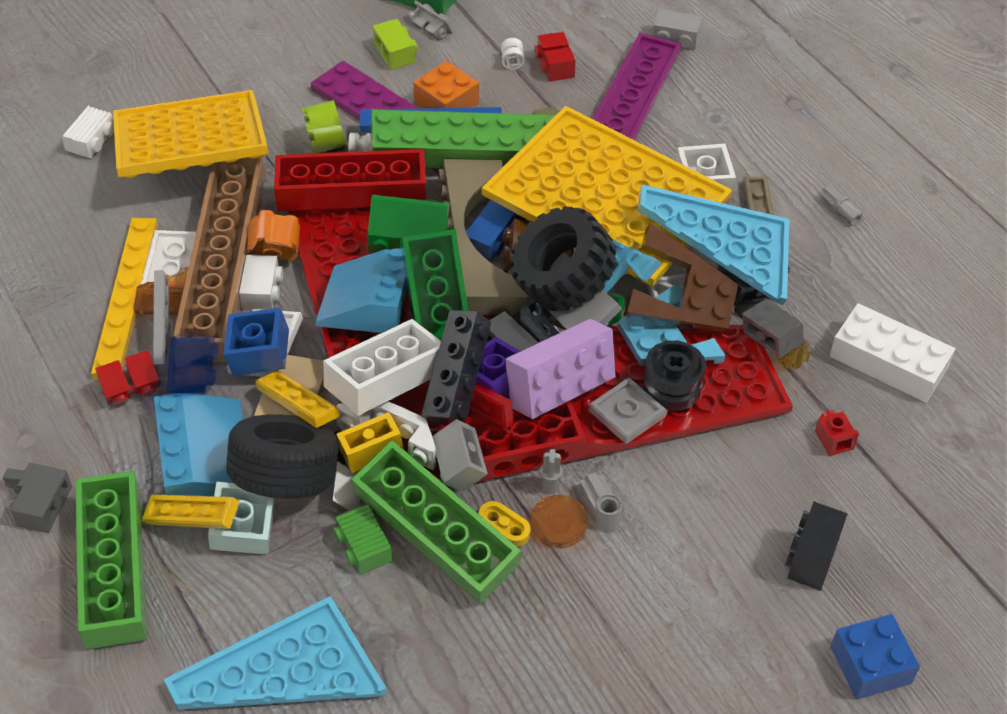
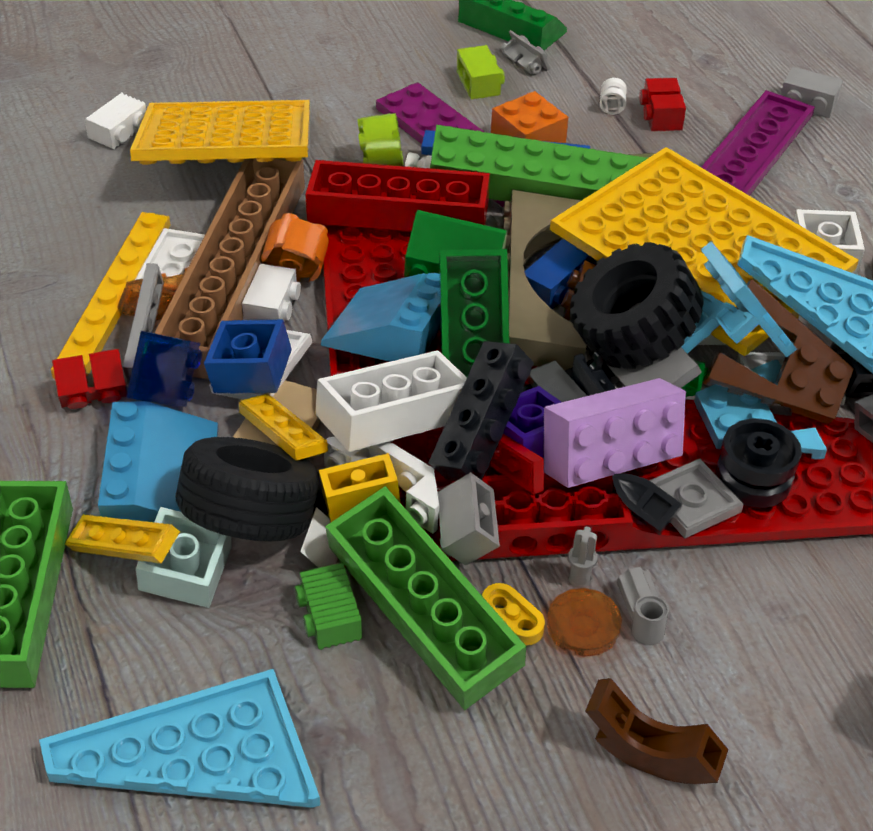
camera: 10 degrees right, 5 degrees down
(593, 420) = (646, 501): none -> black plate
(625, 610) = (660, 749): none -> reddish brown arch
(641, 238) = (743, 297): none -> medium azure wing

